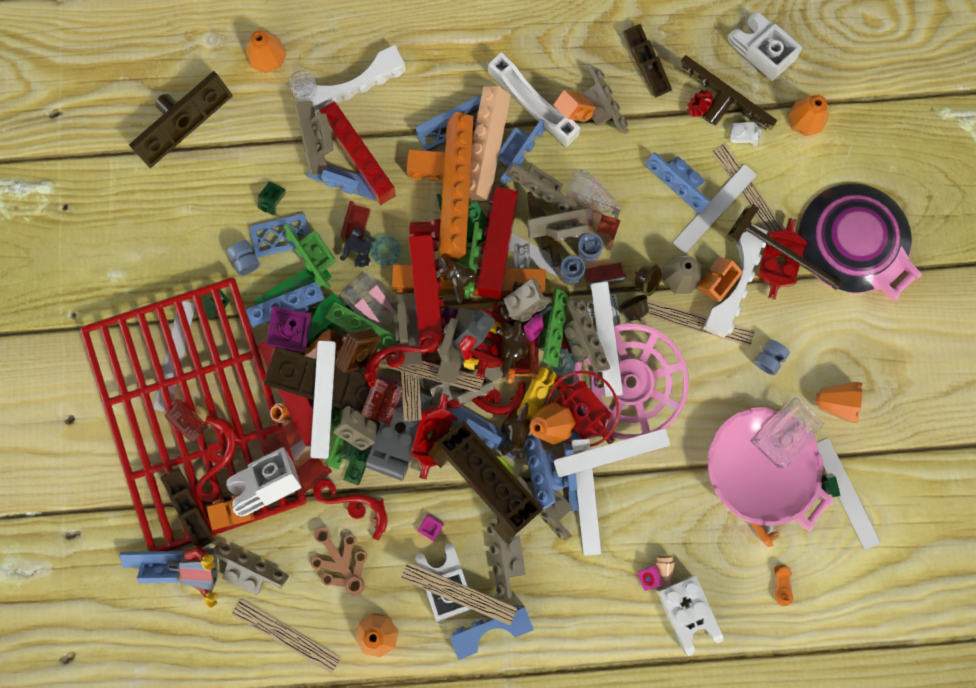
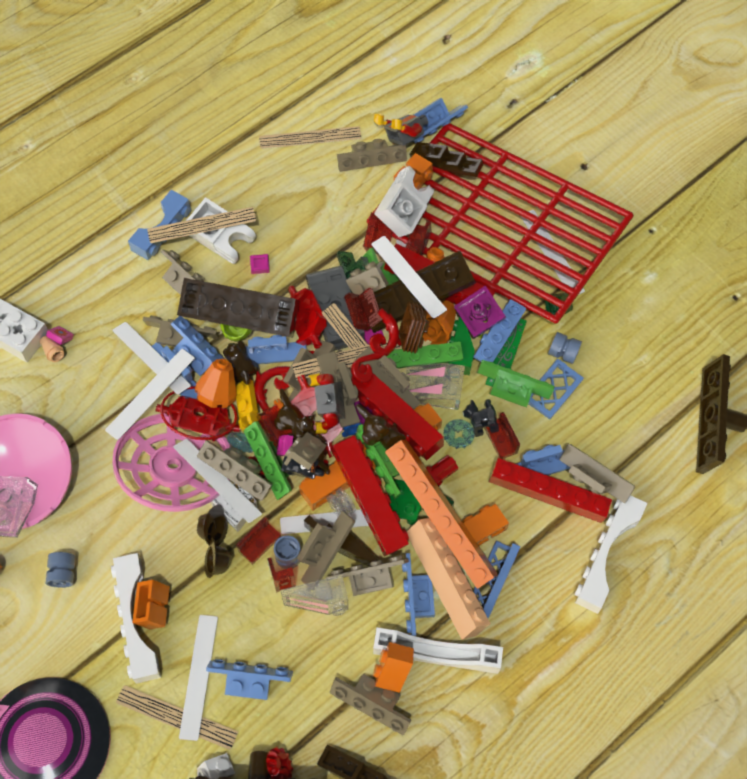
camera: 140 degrees right, 15 degrees down
(186, 420) = (499, 209): clear red panel -> none
(221, 461) = (460, 201): red plant -> none
(265, 51) = (705, 526): orange cone -> none
(270, 197) = (587, 409): dark green bracket -> none
(303, 86) = (643, 509): clear wheel -> none
(341, 563) = (309, 199): nougat plant -> none
(378, 506) = (325, 237): red plant -> none
(385, 631) = (244, 171): orange cone -> none
(572, 270) = (289, 521): sand blue wheel -> none
(682, 274) = (189, 592): dark tan cone -> none
(695, 321) = (153, 560): tan sticker -> none
(744, 223) = (159, 666): dark brown tile -> none
(774, 273) = (92, 655): red plate -> none

